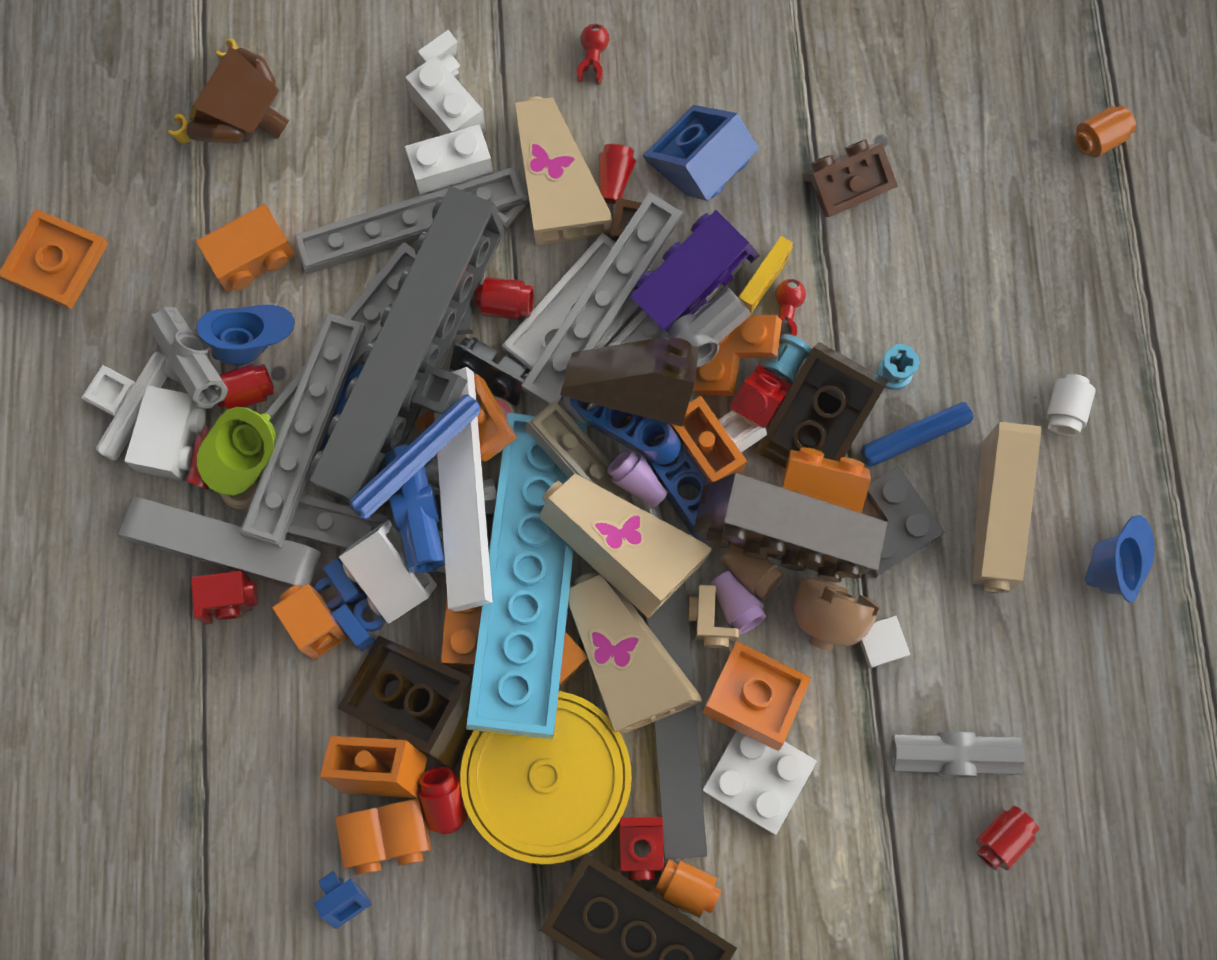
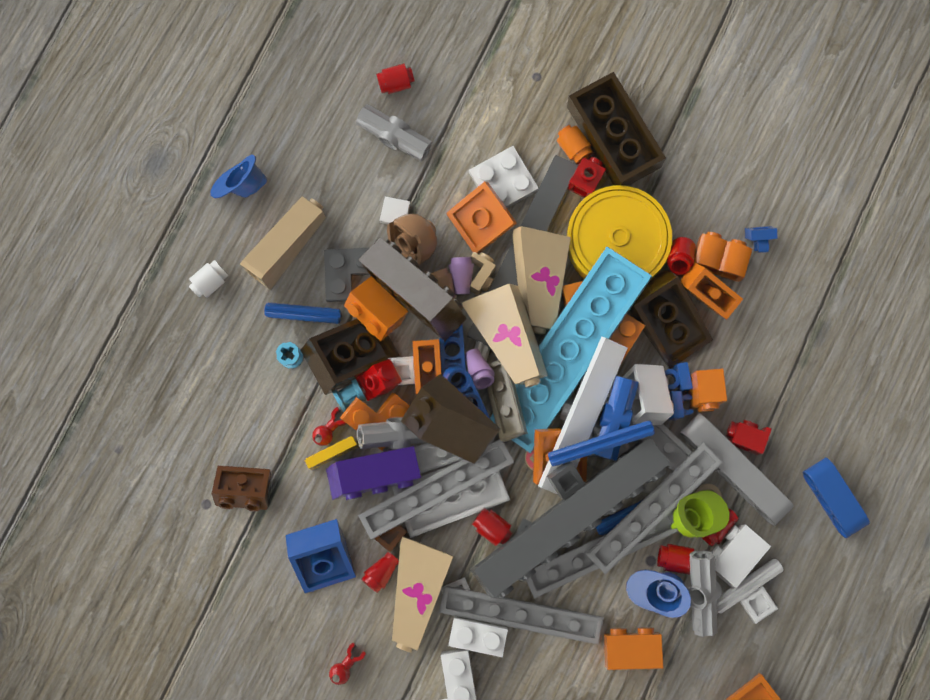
camera: 145 degrees left, 5 degrees up
(65, 580) = (836, 497): none -> blue beam
(502, 378) = (531, 497): black hinge -> none
(1105, 130) = (73, 429): orange brick -> none

